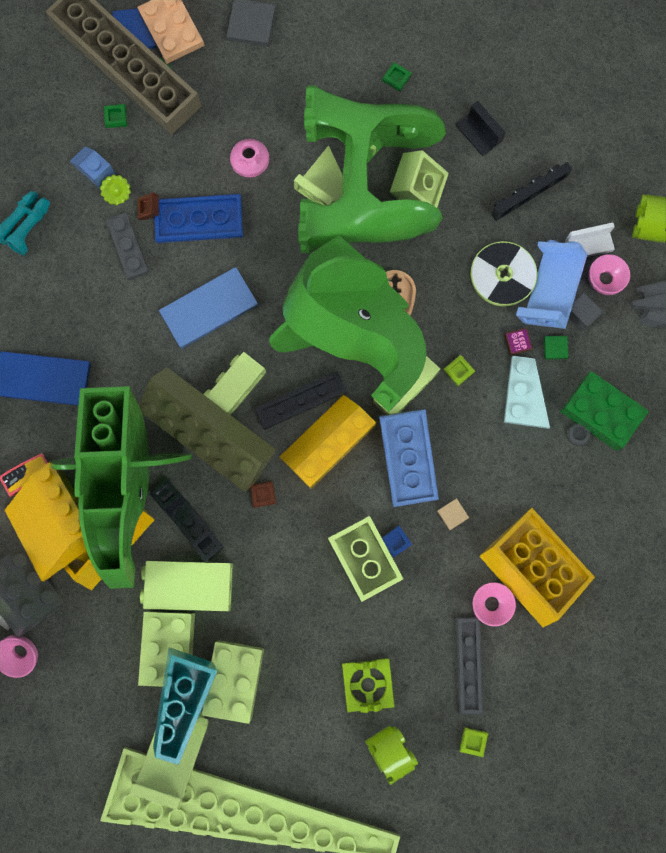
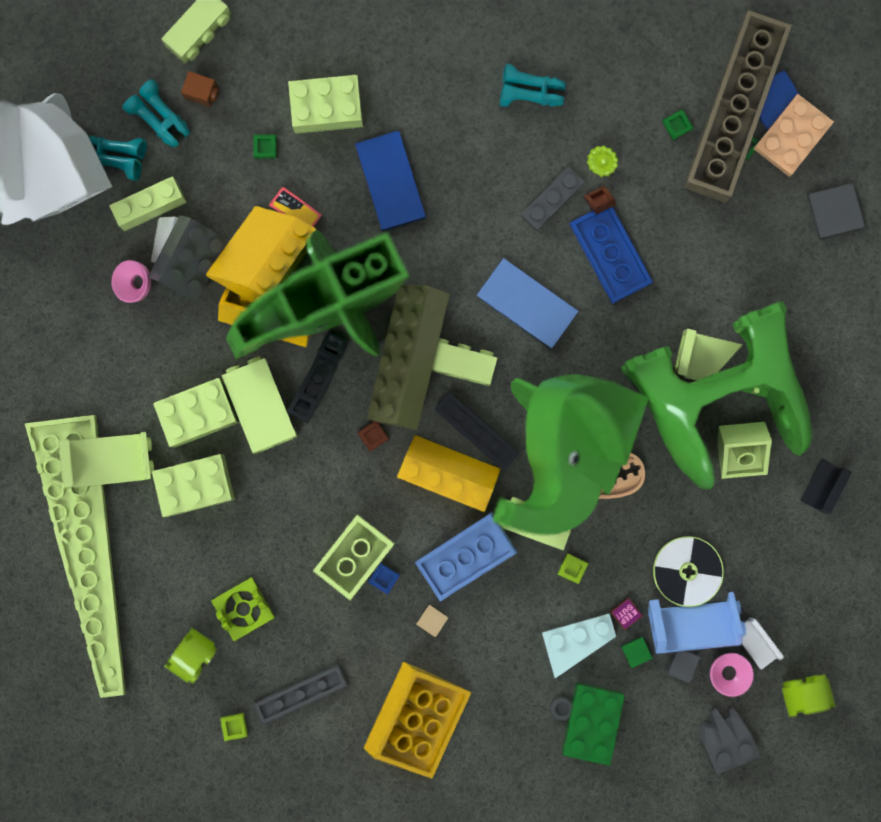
camera: 65 degrees right, 5 degrees up
(92, 166) = (616, 127): medium blue slope -> none
(182, 698) = (160, 448): teal wedge -> none
(249, 166) = (686, 282): bright pink piece -> none
(396, 76) = (844, 380): green tile -> none
(505, 608) = (364, 706): bright pink piece -> none
(536, 187) = (791, 567): black plate -> none

